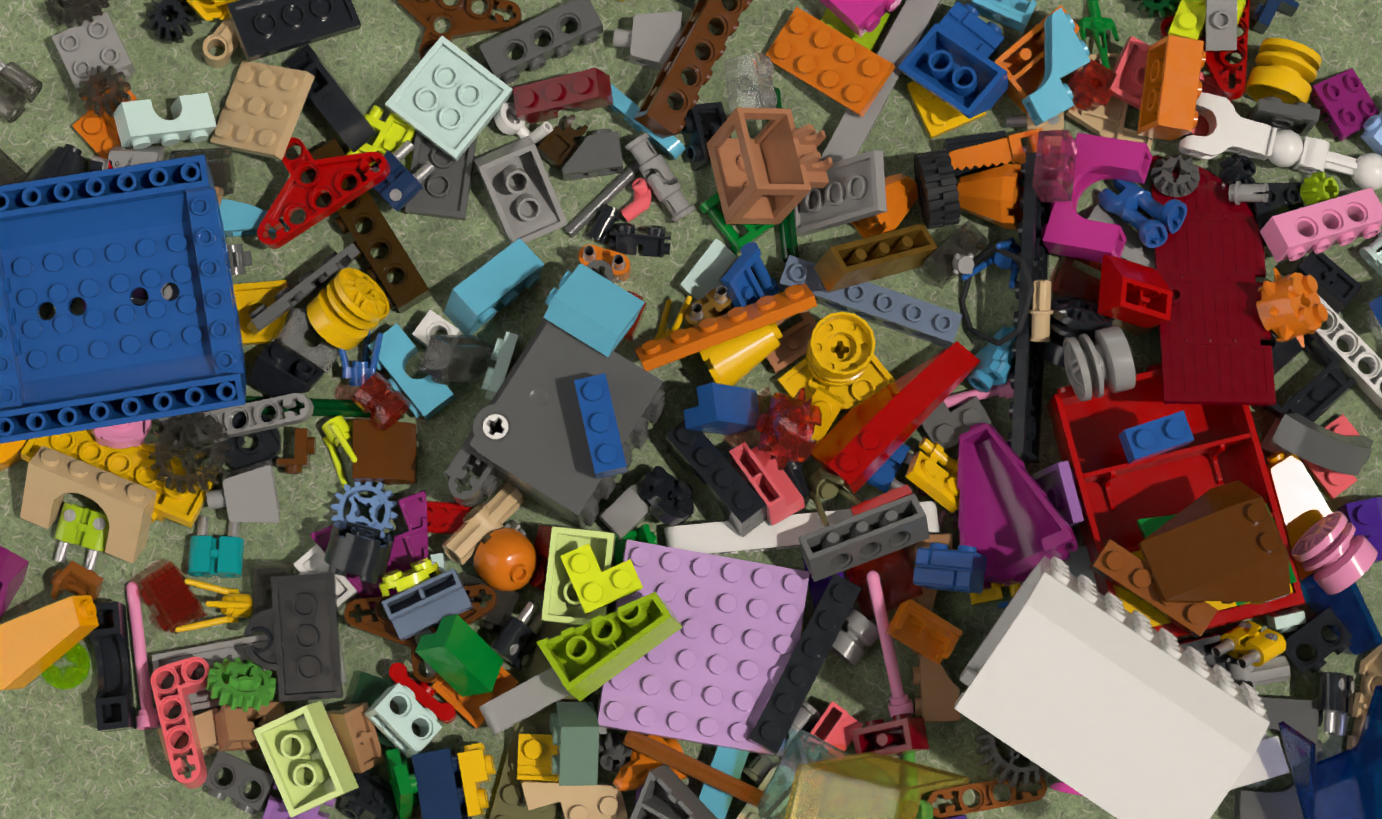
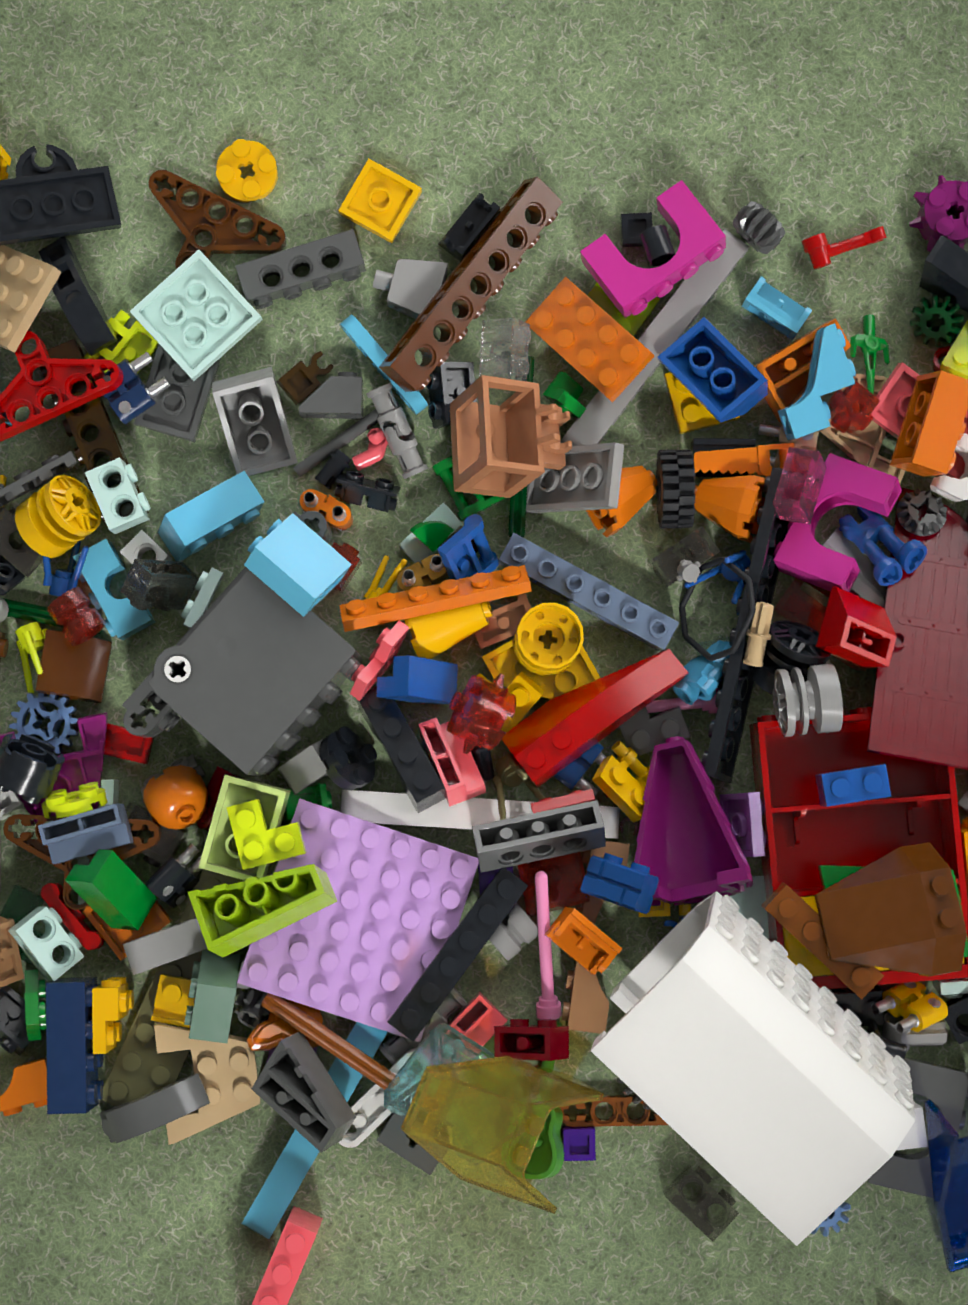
camera: 10 degrees right, 5 degrees up
(398, 282) = (112, 498): none -> light aqua brick
(481, 522) = (158, 755): tan piece -> none
(510, 124) = (258, 347): white plate -> none
(544, 98) = (327, 328): dark red arch -> none
(600, 426) = (281, 688): blue arch -> none
(682, 394) = (380, 659): none -> coral plate
(710, 269) = (432, 533): none -> green tile
(816, 114) = (564, 393): none -> green bracket
(875, 257) = (599, 550): pearl gold brick -> none
(968, 27) = (740, 330): blue brick -> none

